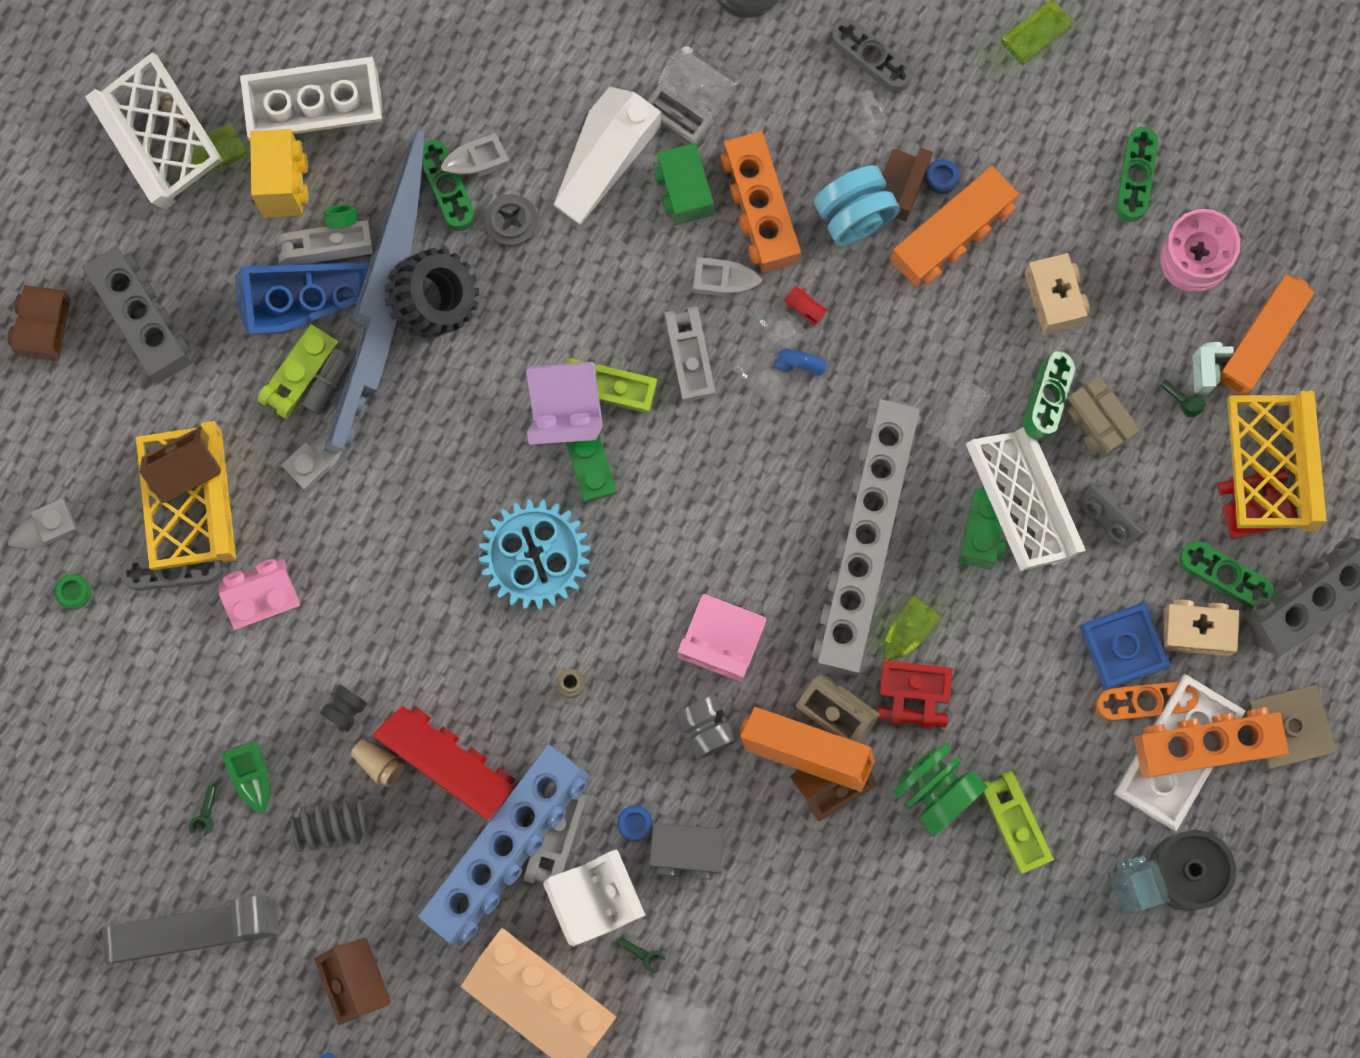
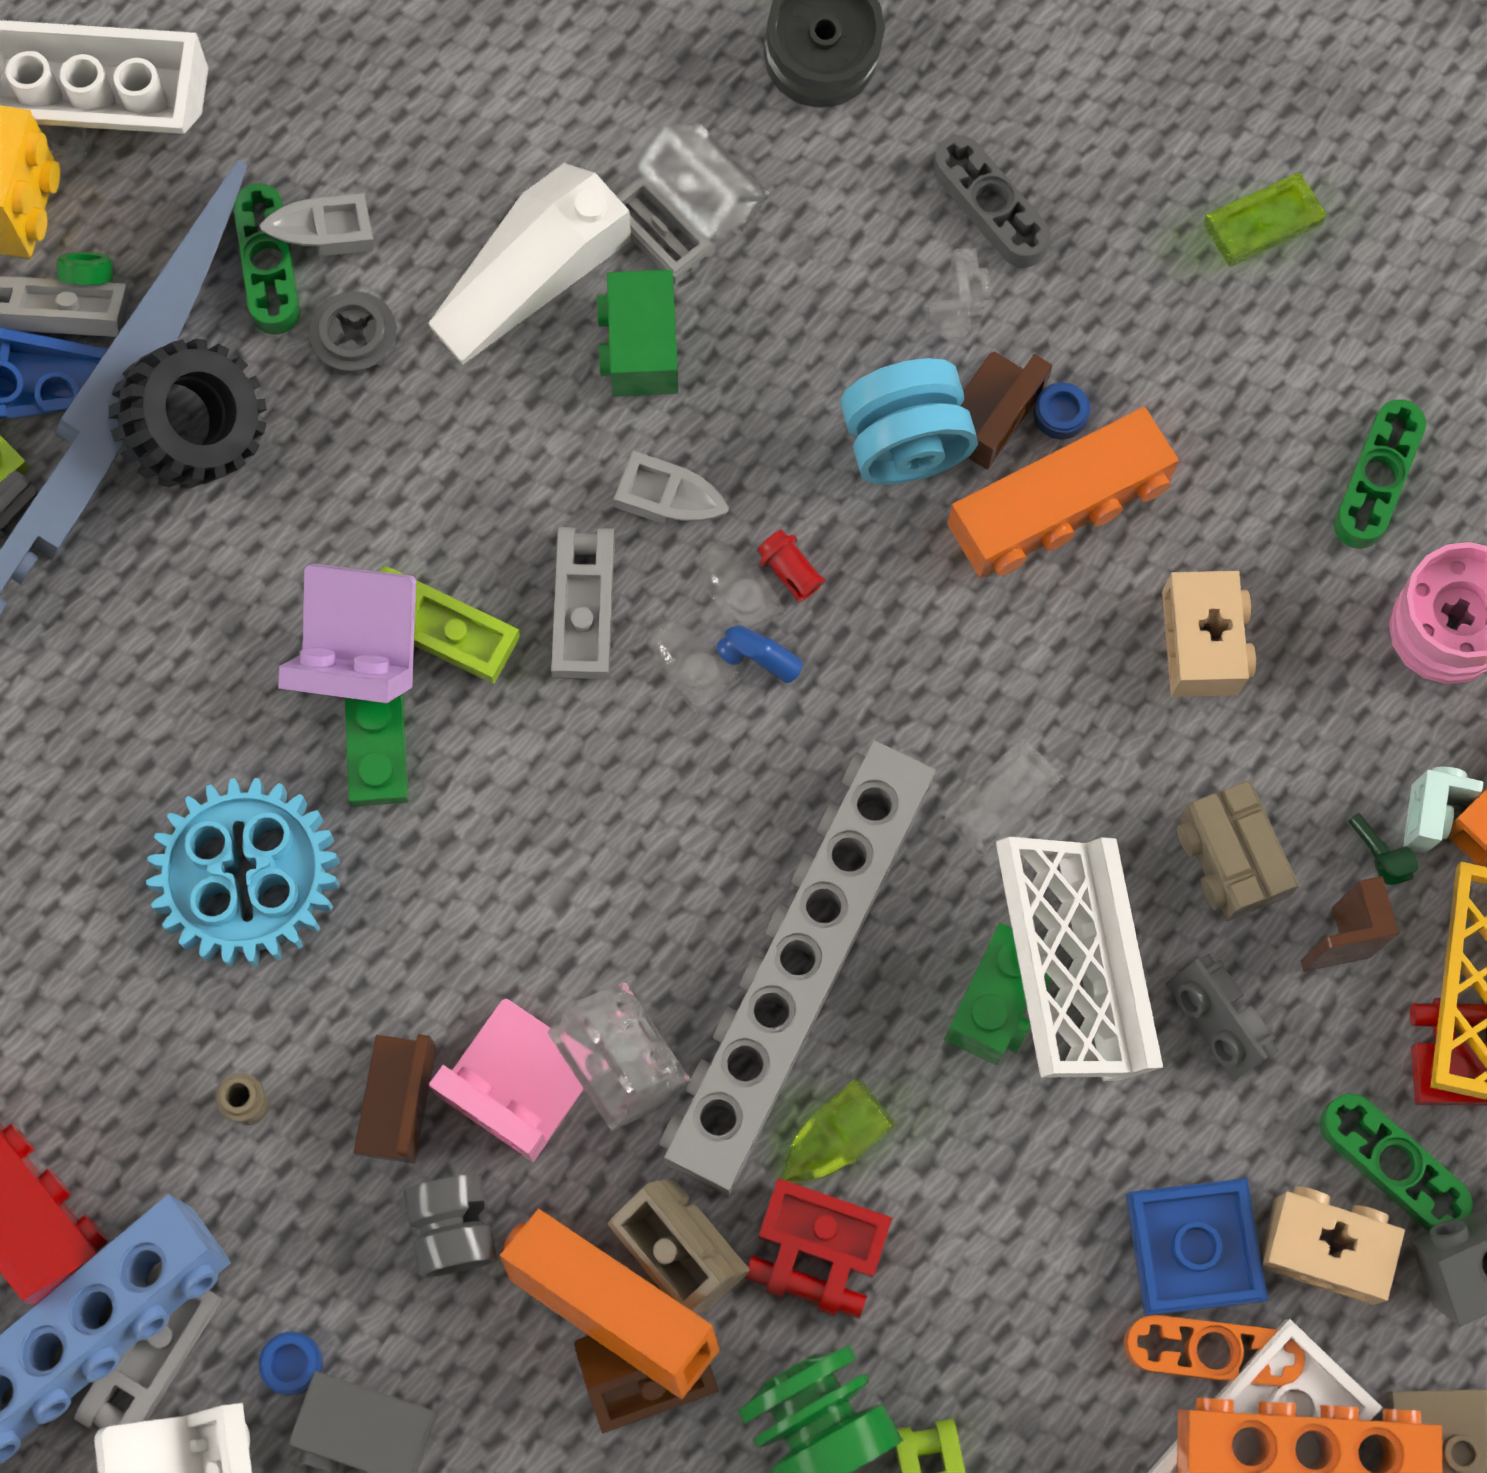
camera: 10 degrees right, 5 degrees down
(655, 664) = (395, 1098): none -> reddish brown panel
(752, 153) = (758, 308): orange brick -> none
(777, 611) = (618, 1055): none -> clear brick
(1039, 404) = (1138, 806): green beam -> none
(1181, 444) = (1363, 924): none -> reddish brown panel

